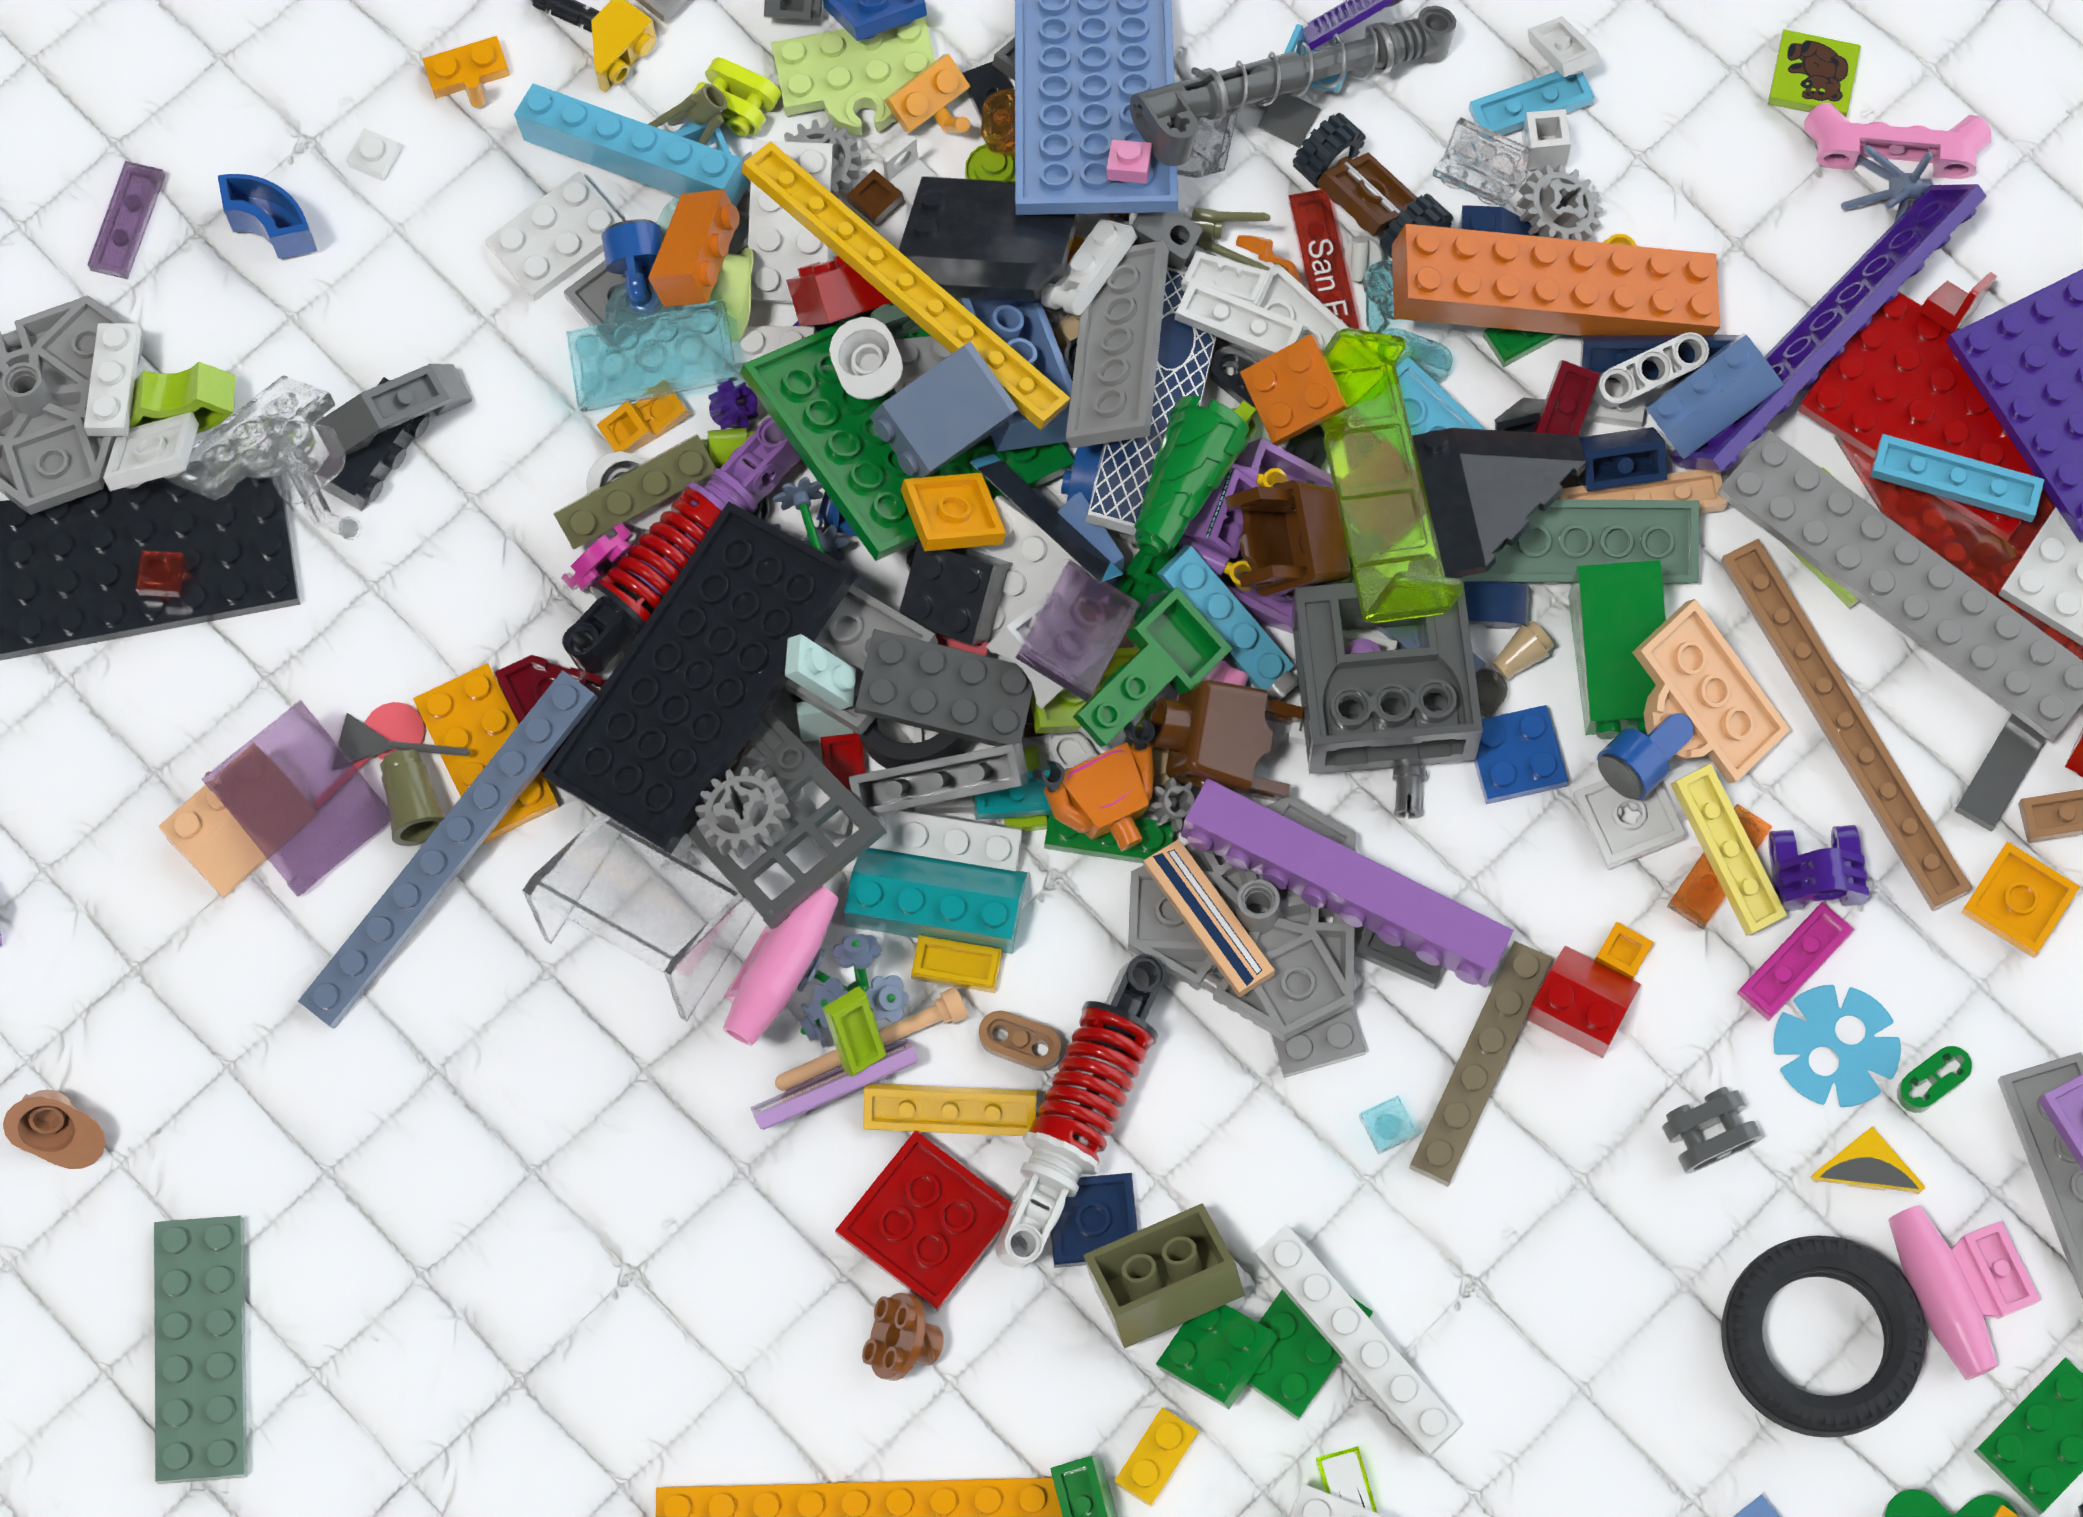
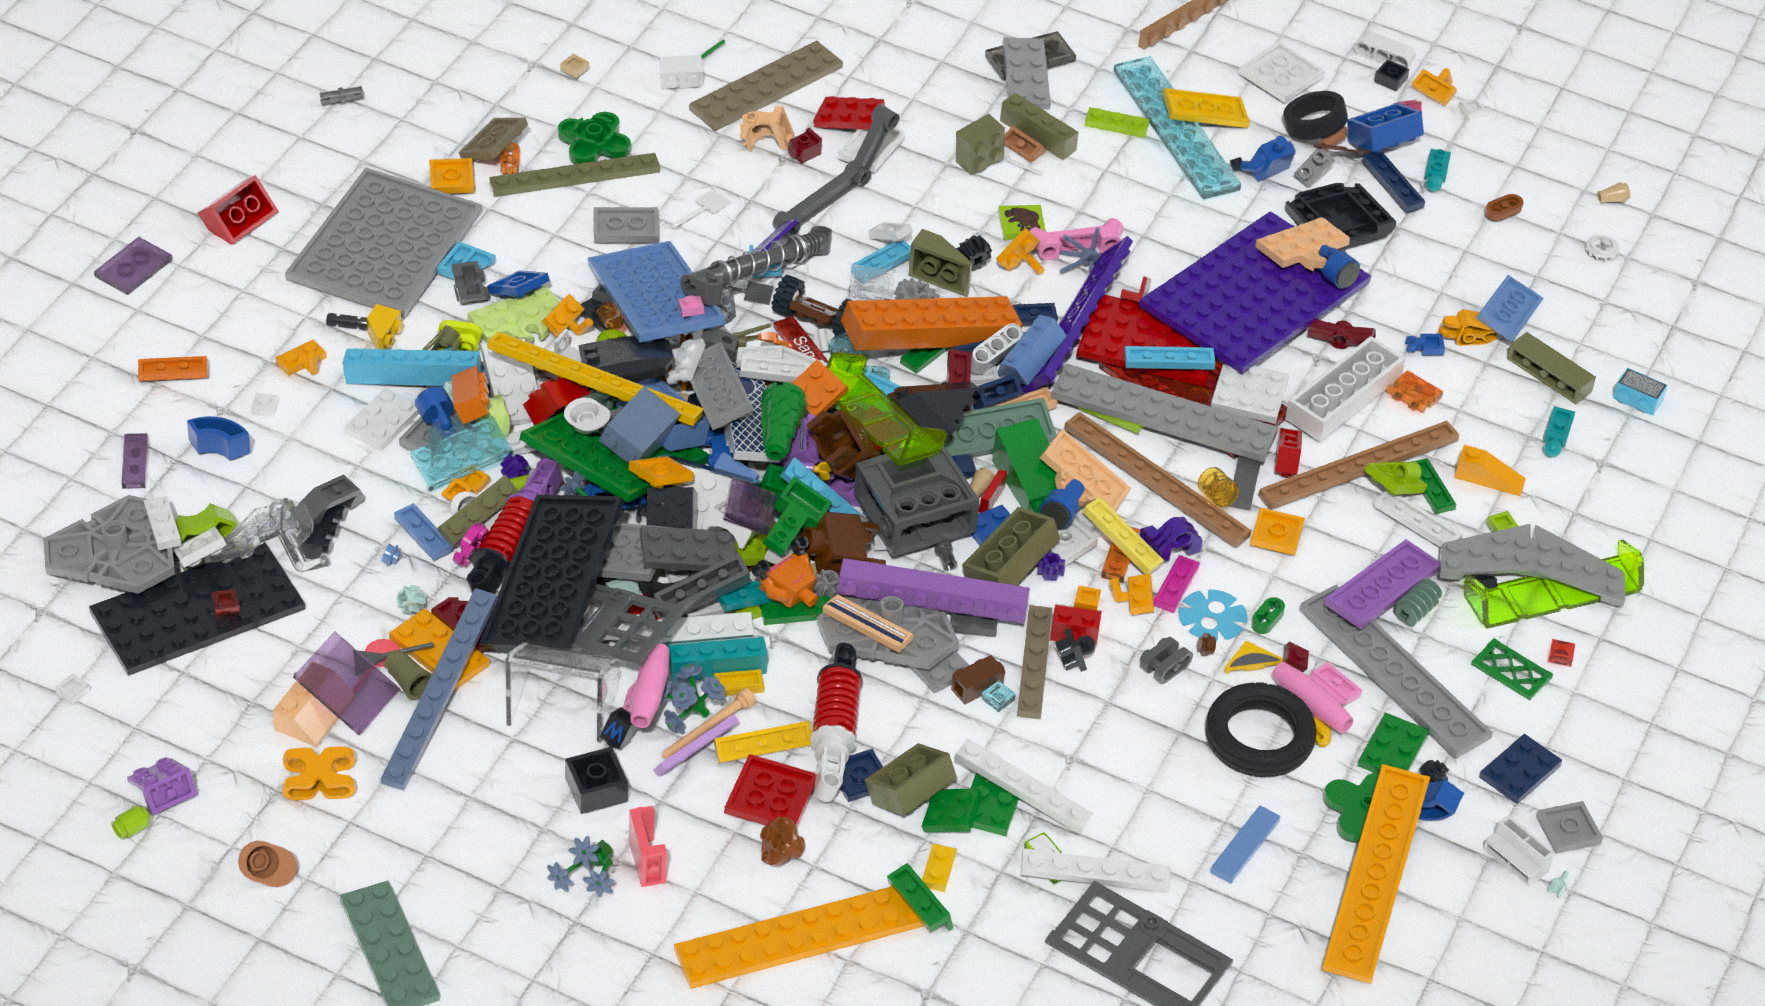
camera: 25 degrees left, 25 degrees down
(202, 963) = (319, 773): none -> light orange piece
(247, 40) = (172, 368): none -> orange plate
(467, 642) = (410, 599): none -> light aqua gear
(471, 534) = (391, 555): none -> medium blue plate
(537, 497) = (422, 531): none -> medium blue plate
(590, 1268) = (597, 855): none -> sand blue plant
(639, 1115) = (596, 780): none -> black brick
(657, 1321) = (649, 860): none -> coral panel
(707, 1017) = (618, 729): none -> black brick
(762, 805) = (603, 618): light grey gear -> none
(820, 672) = (618, 545): light aqua plate -> none
(854, 1031) = (702, 705): lime tile -> none
(1021, 1039) = (788, 705): medium nougat plate -> none
(1365, 1079) = (974, 679): none -> reddish brown brick
(1515, 831) = (1013, 548): none -> olive brick
(1538, 676) = (993, 491): none -> red tile
(1548, 137) = (902, 265): white brick -> none
(1553, 1073) = (1072, 651): none -> black hips
(1585, 879) = (1051, 567): none -> dark purple gear
(1618, 141) = (939, 263): none -> olive slope
(1693, 133) = (976, 250): none -> black gear
(1718, 972) = (1139, 594): none -> light orange plate
(1759, 293) = (1029, 312): none -> dark blue plate
(1786, 146) = (1019, 250): none -> light orange plate
(1797, 1117) = (1206, 644): none -> reddish brown plate
(1935, 1368) = (1323, 734): none -> yellow arm
(1944, 779) = (1218, 487): none -> clear yellow wheel
(1948, 1189) = (1296, 656): none -> dark red plate

